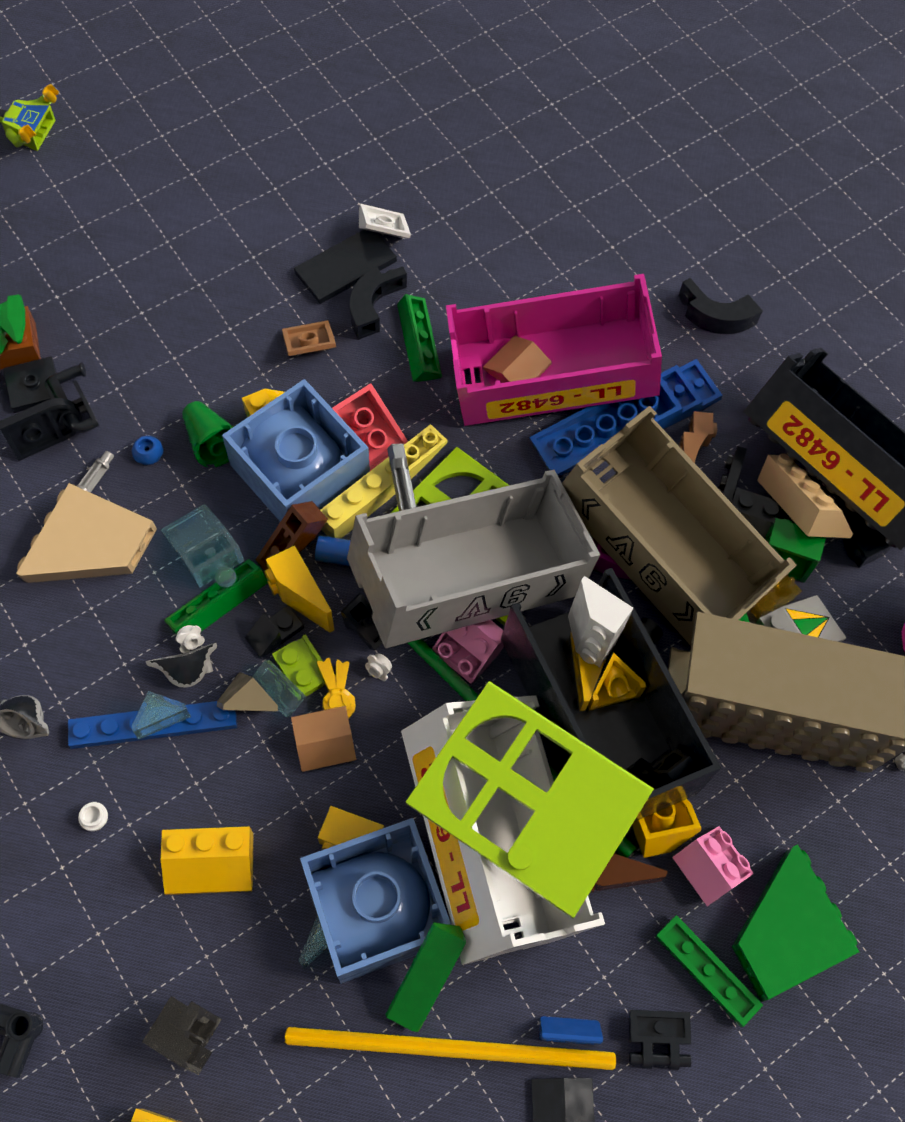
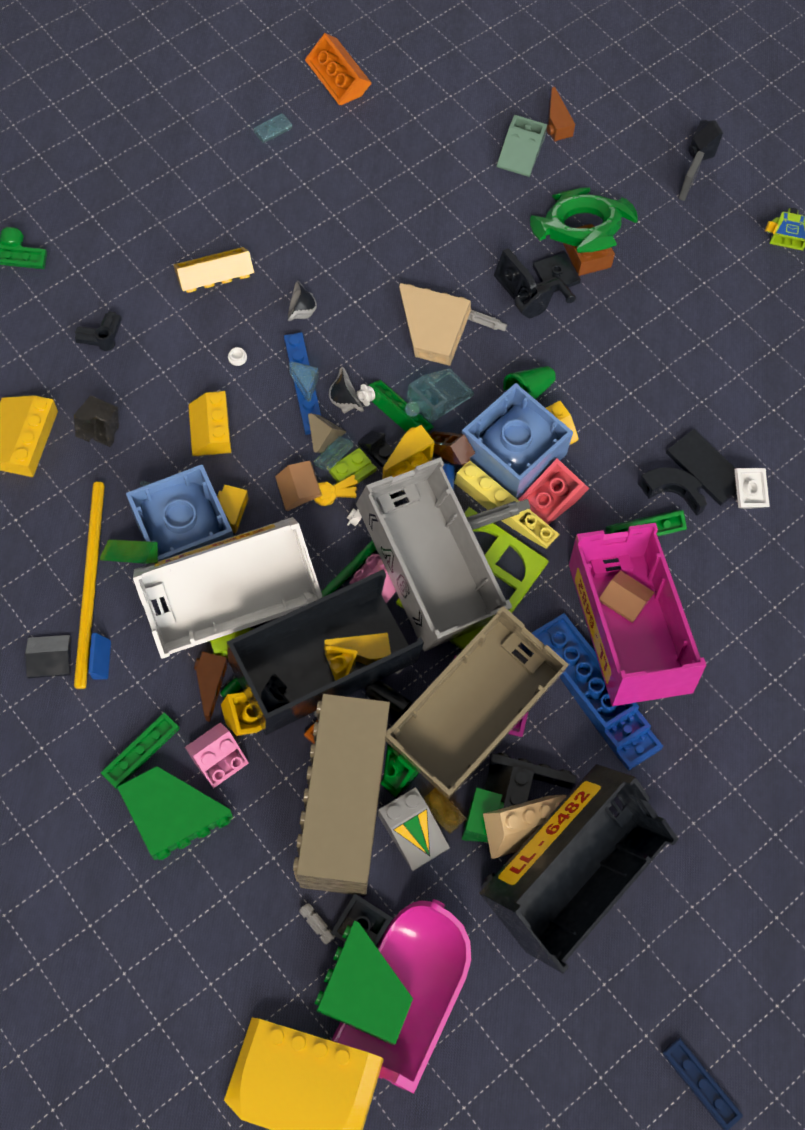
camera: 85 degrees right, 0 degrees up
(150, 456) = (513, 356): blue plate -> none
(308, 338) = (628, 446): medium nougat slope -> none
(572, 824) = (217, 612): lime door -> none
(596, 621) = (375, 632): white slope -> none
(659, 1028) = (100, 716): black plate -> none
(699, 435) = (589, 749): medium nougat slope -> none
(717, 316) = (712, 771): black arch -> none

